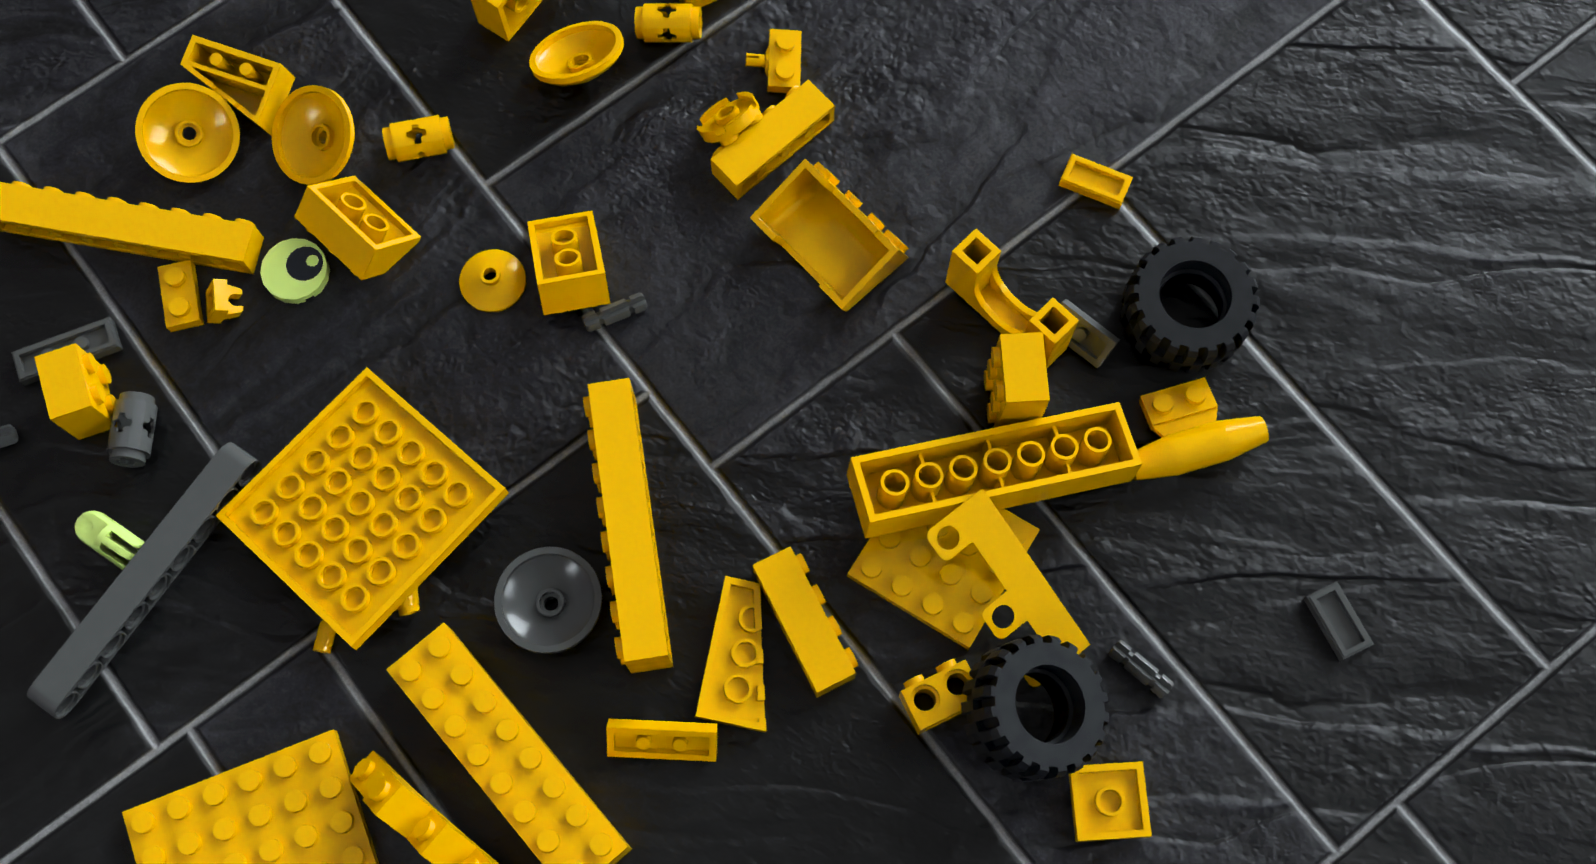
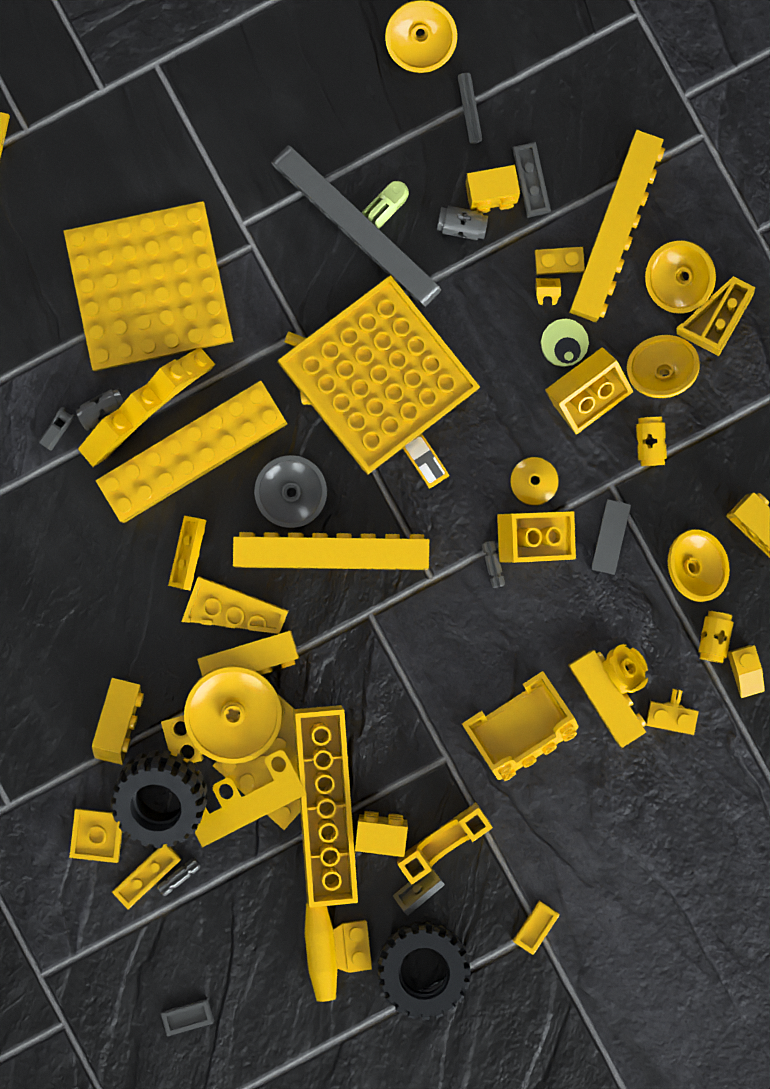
camera: 105 degrees right, 15 degrees up
(482, 422) = (425, 461): none -> slope
(555, 171) = (610, 537): none -> dark grey tile
(889, 623) = (232, 714): none -> yellow dish
(932, 797) = (117, 721): none -> yellow wedge
(1152, 718) = (146, 875): none -> yellow tile

